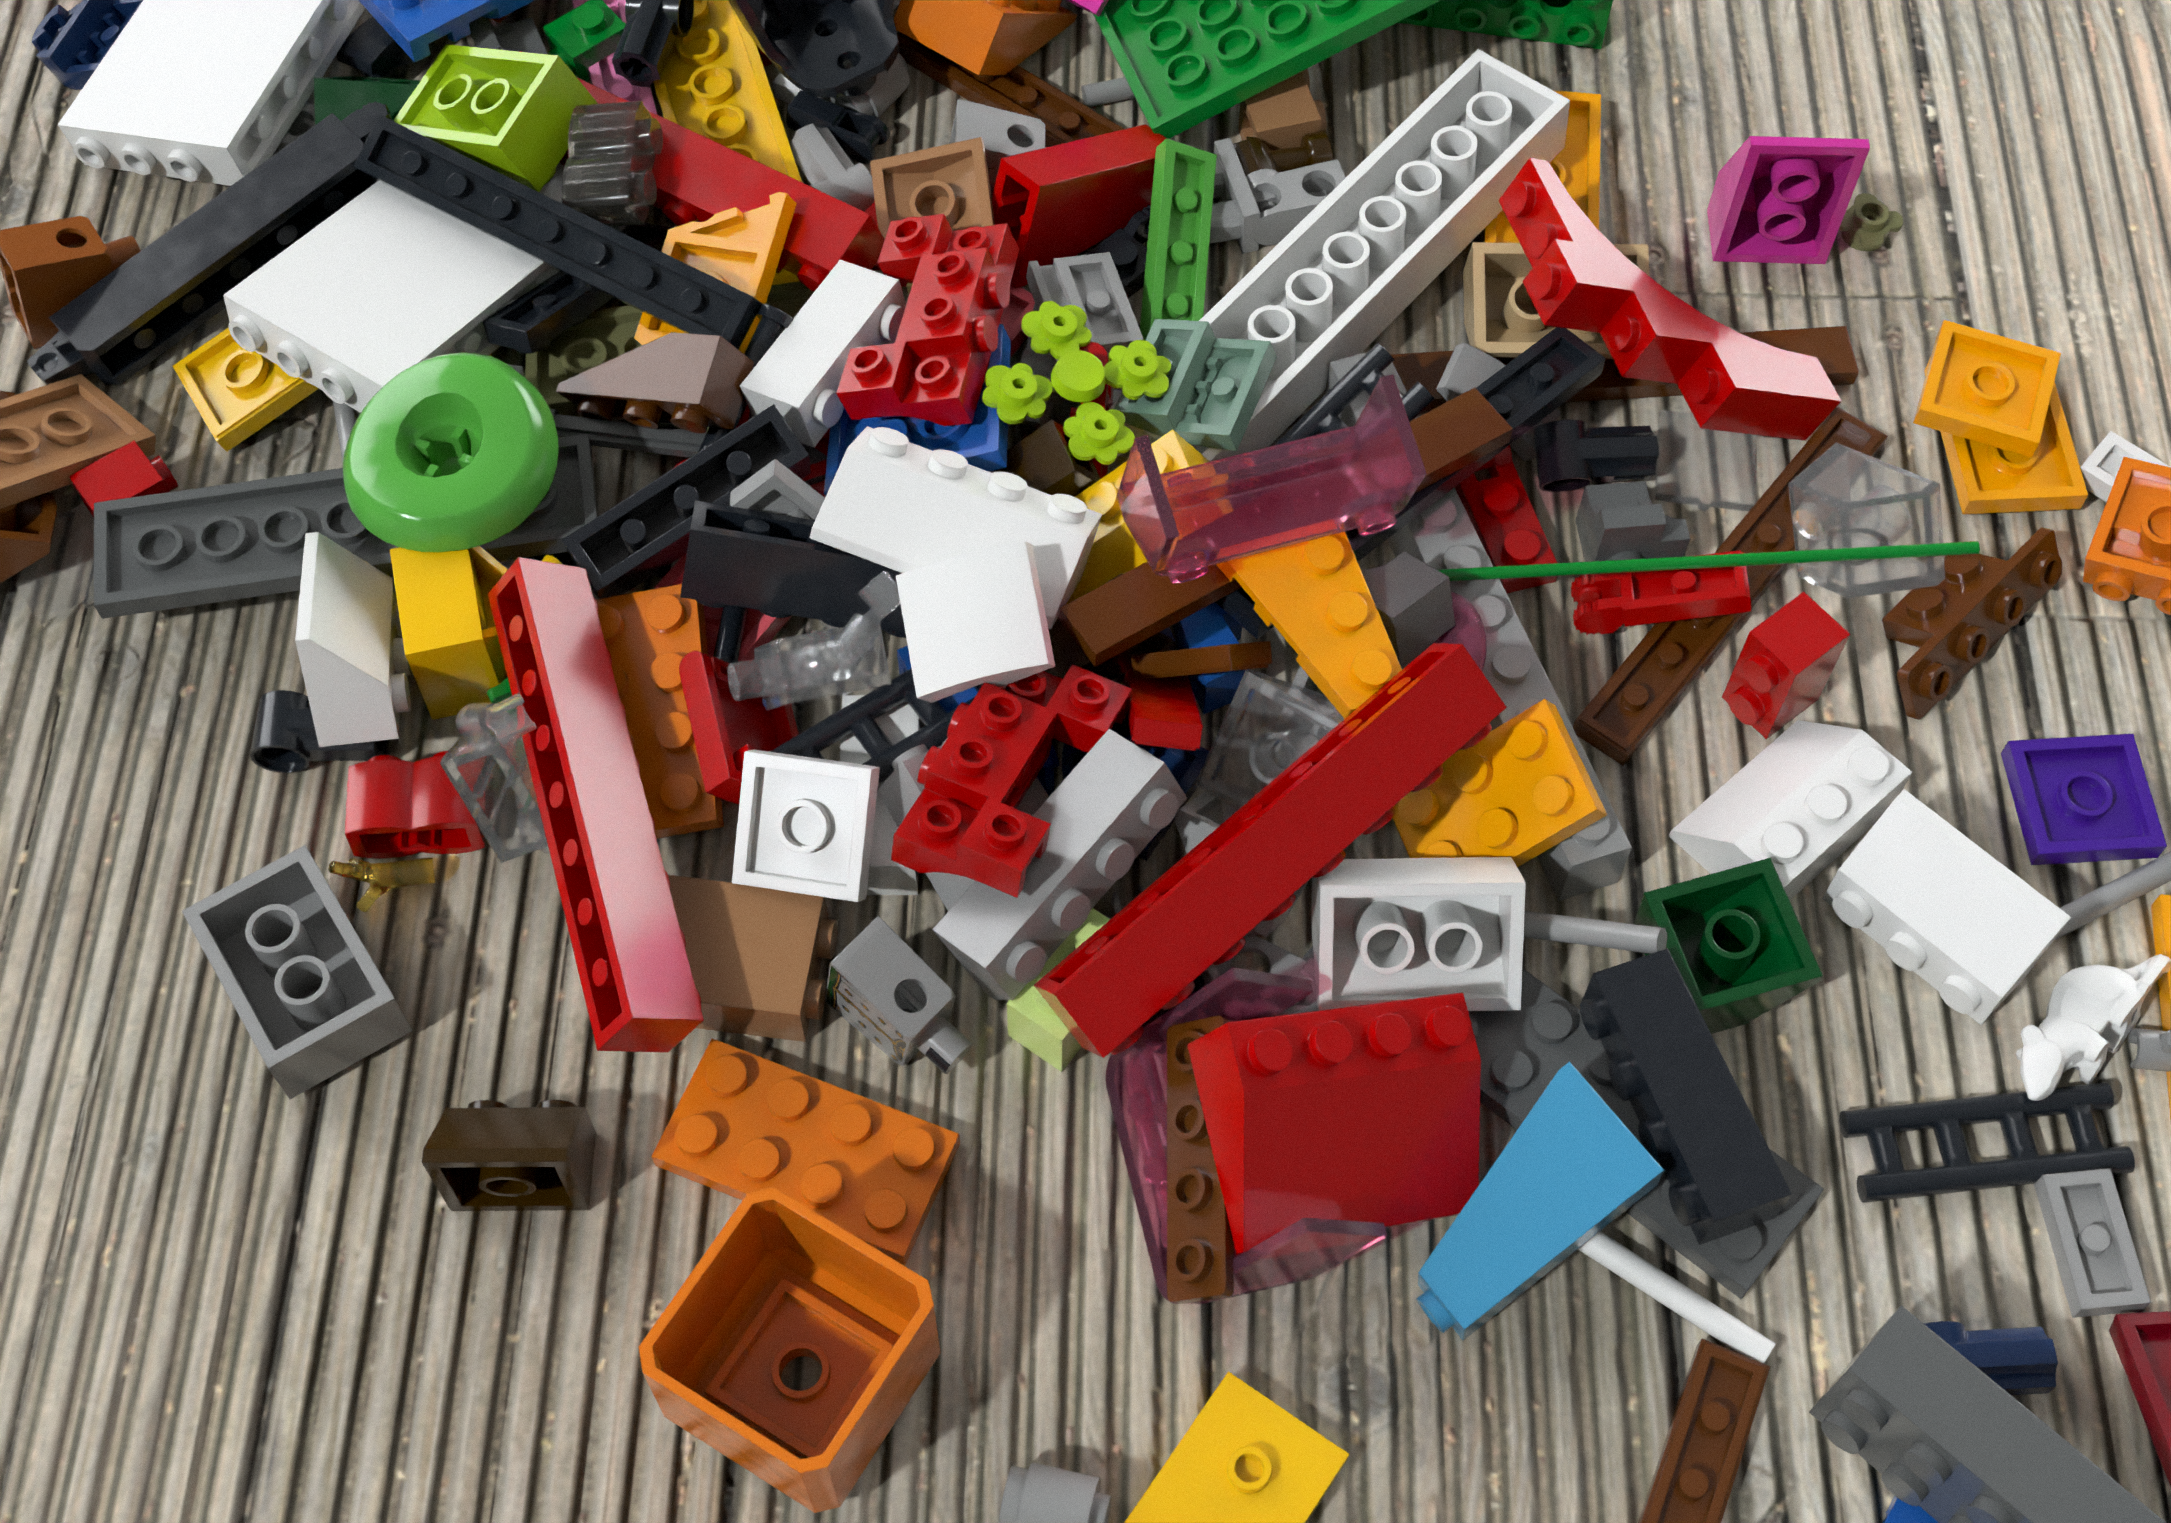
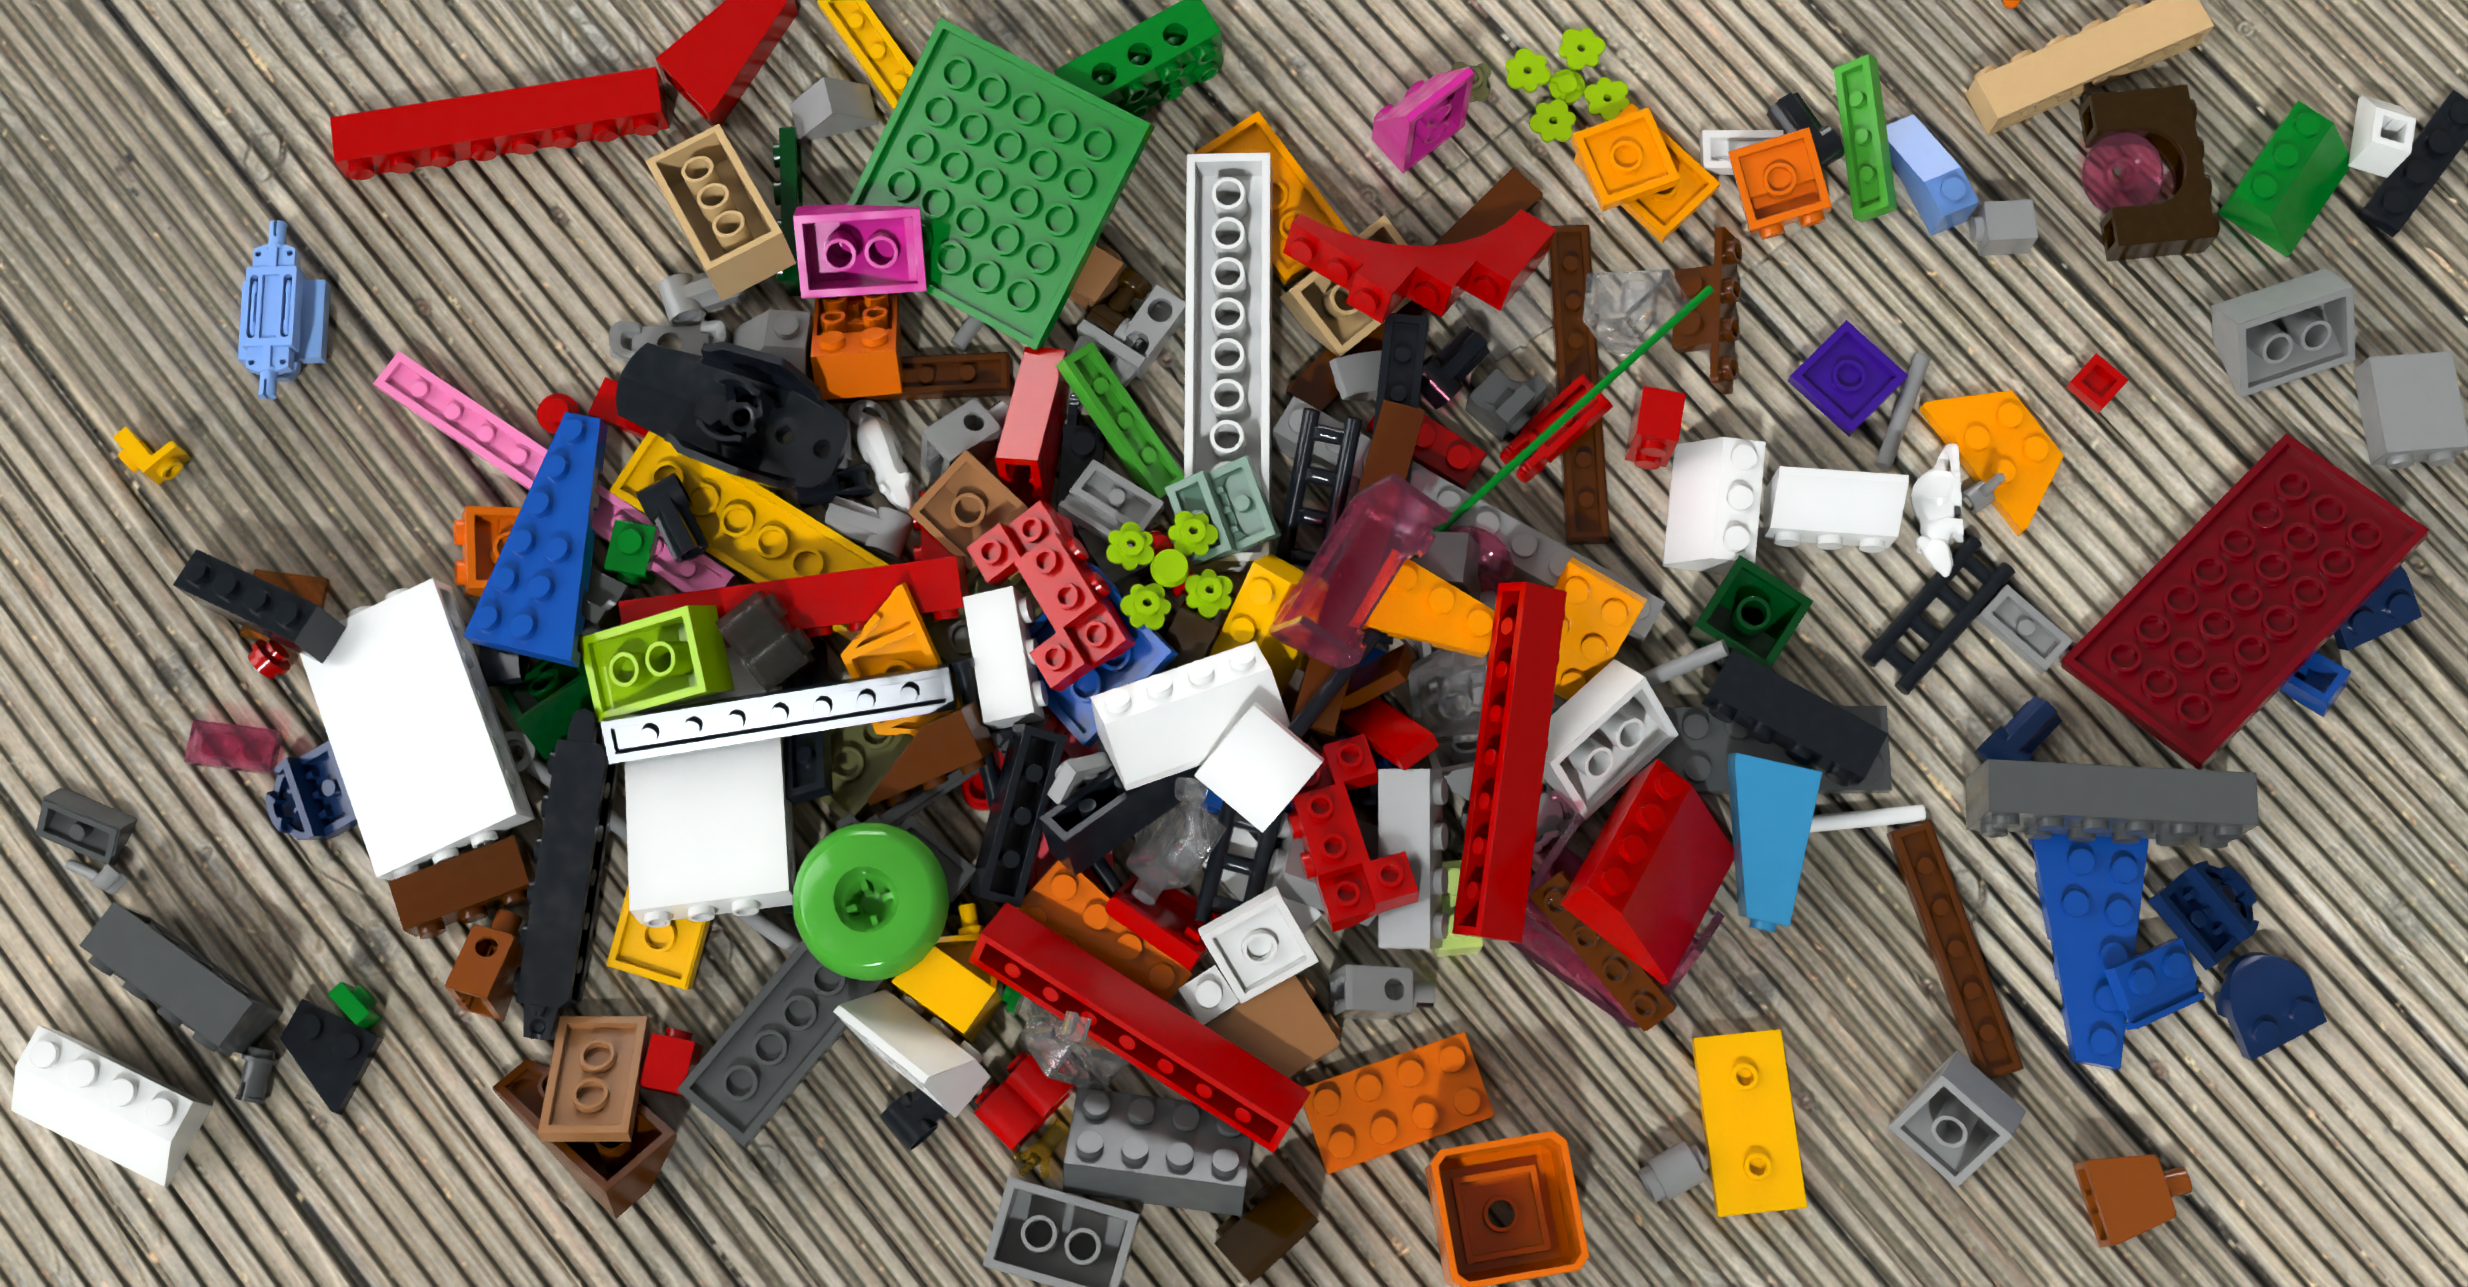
camera: 40 degrees left, 15 degrees up
(116, 191) = (463, 887): none -> reddish brown brick
(480, 960) = (1154, 1153): none -> dark grey brick
(703, 846) = (1208, 996): none -> white brick
(918, 116) = (883, 453): none -> white animal
(1142, 602) = (1329, 689): none -> black bar
(1980, 297) = (1566, 85): none -> lime plant

